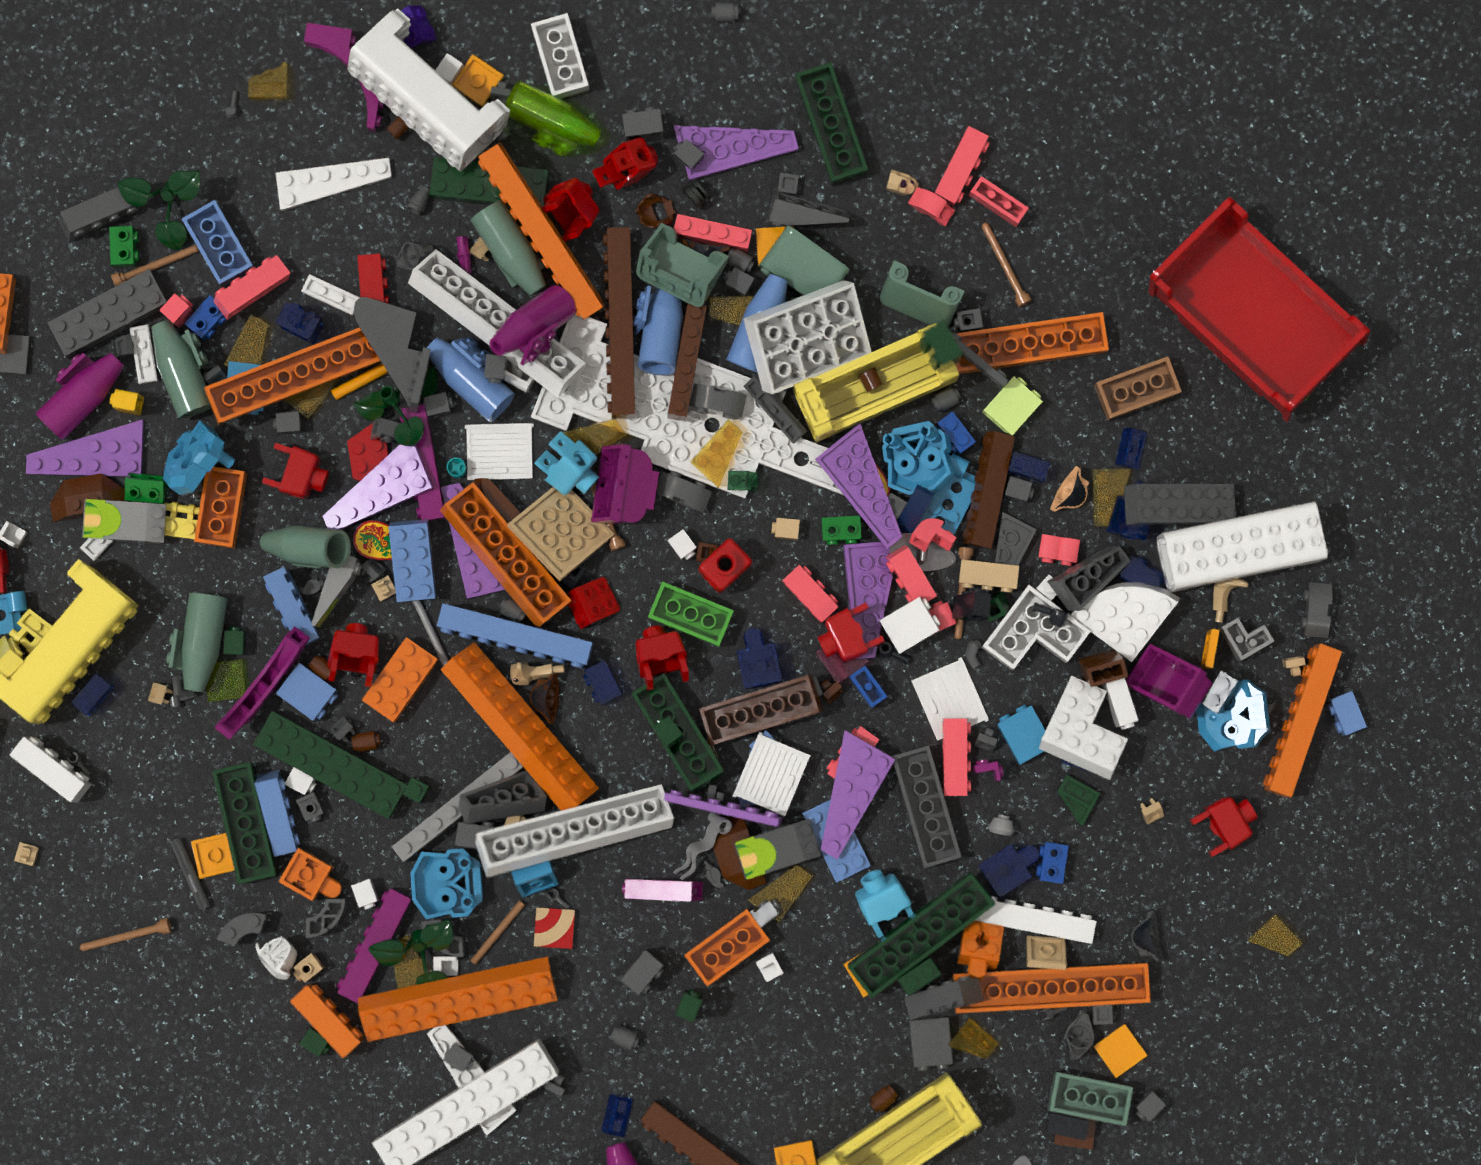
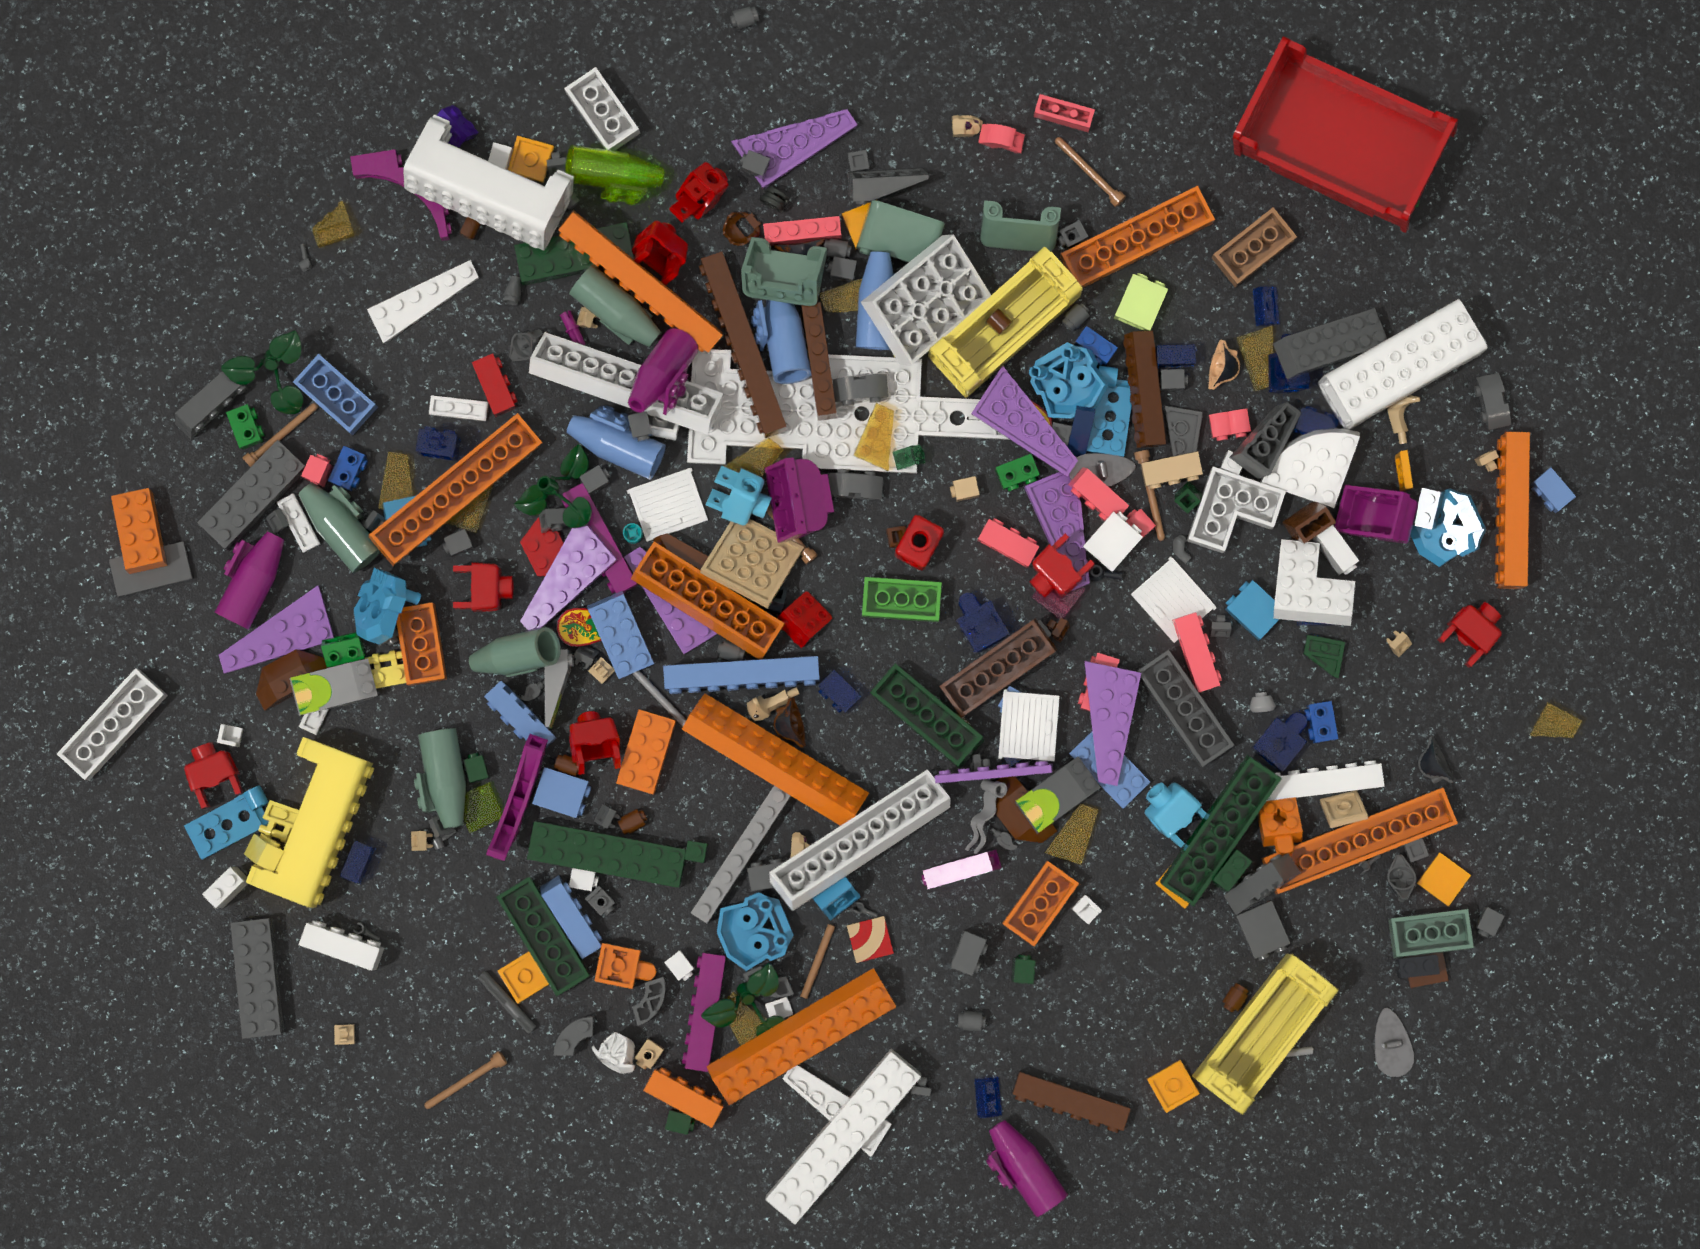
camera: 15 degrees left, 0 degrees up
(127, 402) = (298, 573): yellow brick -> none
(251, 287) = (381, 425): coral brick -> none
(359, 381) = (522, 471): light orange piece -> none
(389, 334) = (527, 427): dark grey piece -> none
(459, 1057) = (821, 1091): dark grey brick -> none
(503, 798) = (781, 832): dark grey wedge -> none
(643, 124) = (702, 149): dark grey brick -> none
(660, 654) = (886, 646): red piece -> none
(667, 731) = (917, 717): dark green brick -> none
(682, 545) = (872, 536): white brick -> none
(767, 912) = (1067, 857): brick -> none
(776, 410) = (918, 379): dark grey plate -> none
(831, 123) = (880, 90): dark green brick -> none
(867, 686) = (1092, 613): blue brick -> none
(931, 531) = (1105, 446): coral brick -> none
(940, 347) = (1058, 267): dark green brick -> none
(961, 165) = (1017, 90): coral brick -> none
(971, 605) = (1165, 503): black brick -> none
(973, 1040) = (1302, 914): clear yellow wing -> none
(984, 765) = (1228, 651): magenta bracket -> none
(997, 377) = (1118, 278): dark grey plate -> none
(1057, 616) = (1249, 487): black bar -> none
(1243, 643) = (1431, 455): light grey brick -> none

